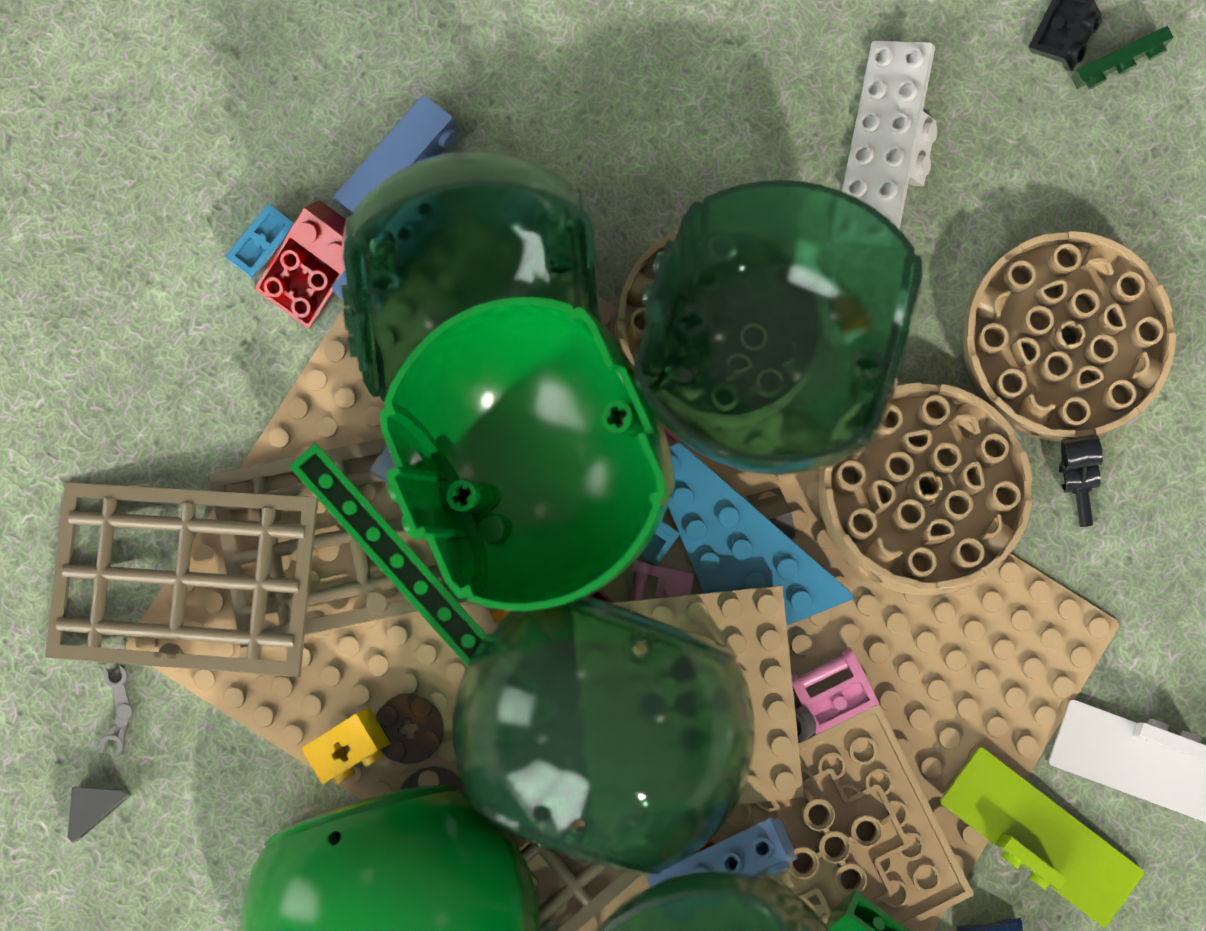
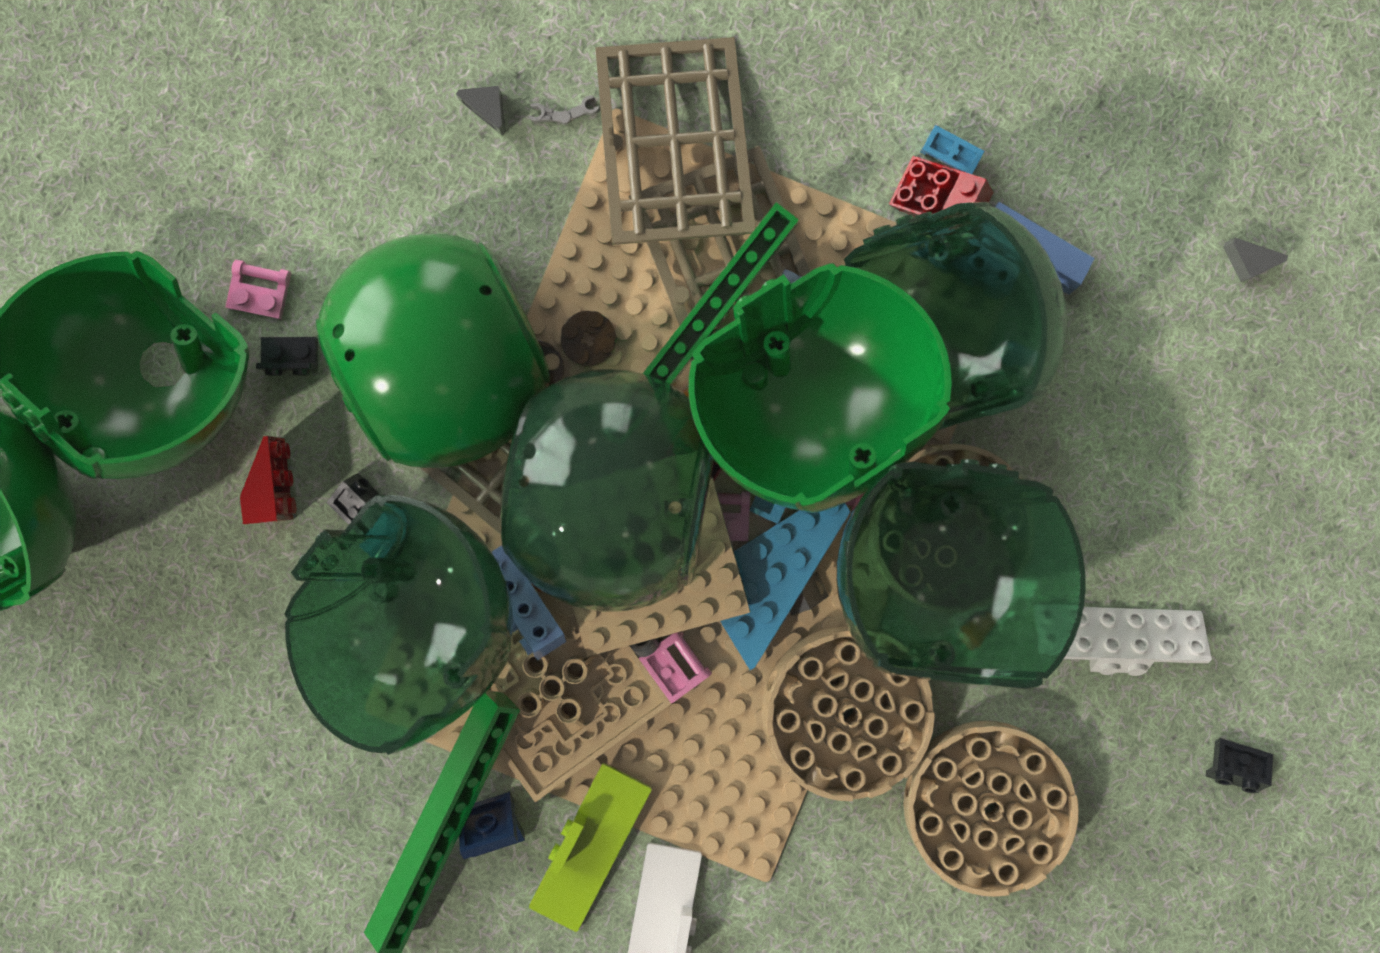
camera: 85 degrees right, 5 degrees up
(328, 751) = (556, 280): yellow brick -> none
(1081, 471) = (883, 834): black beam -> none
(1123, 59) = (1224, 816): dark green plate -> none

